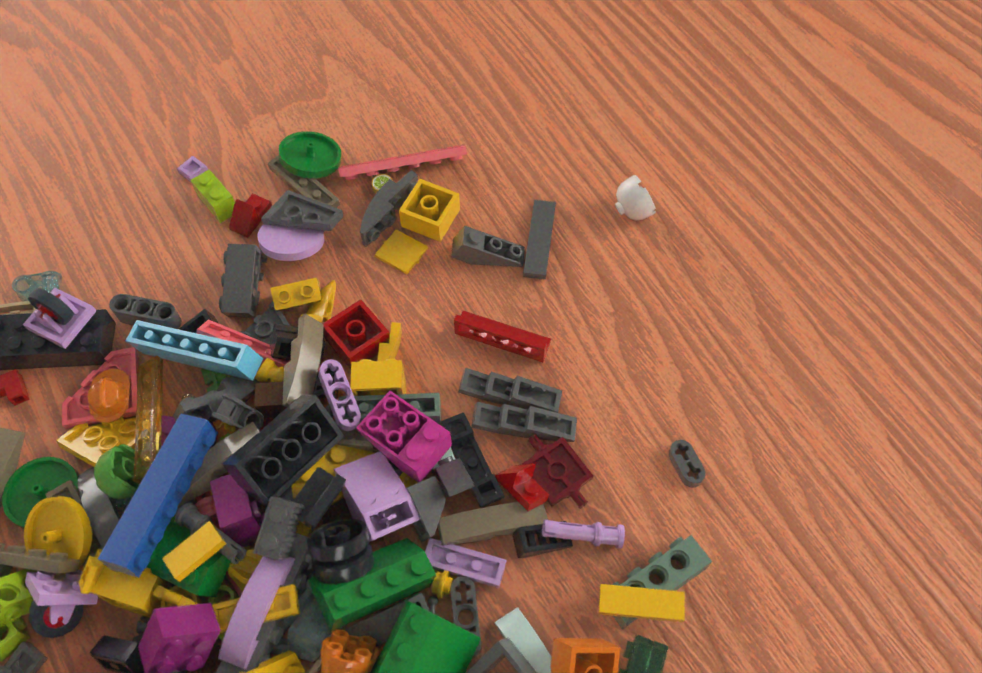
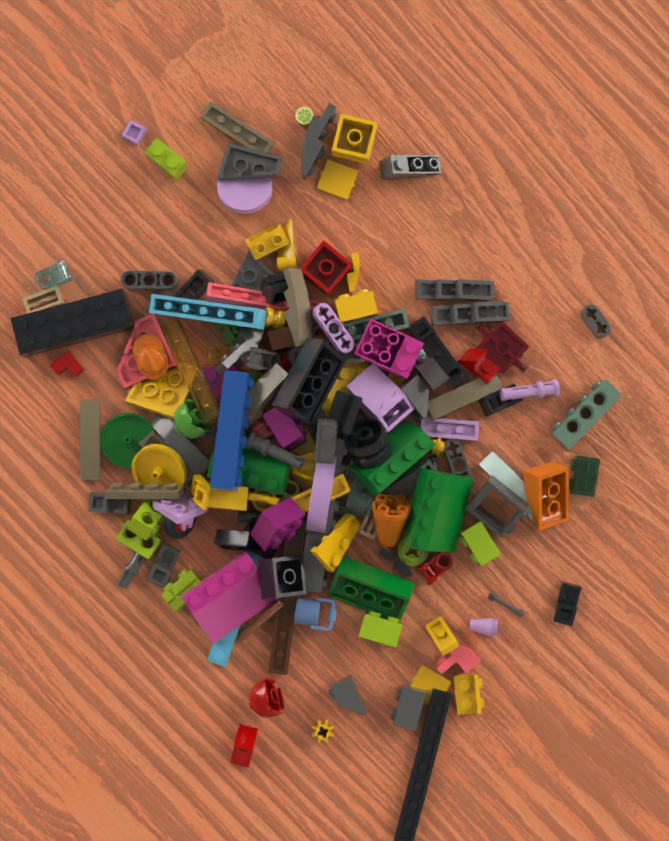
camera: 15 degrees left, 25 degrees up
(57, 315) = (94, 306): lavender plate -> none
(194, 551) = (271, 467): yellow tile -> none
(241, 280) = (218, 238): dark grey wedge -> none
(248, 214) = (200, 169): red slope -> none
(309, 154) = (234, 100): green piece -> none
(393, 163) = (316, 89): coral plate -> none
(502, 336) = (438, 242): red fence -> none
(539, 239) = (450, 145): dark grey tile -> none
(634, 200) = (523, 95): white cylinder -> none
(642, 603) = (578, 434): yellow tile -> none

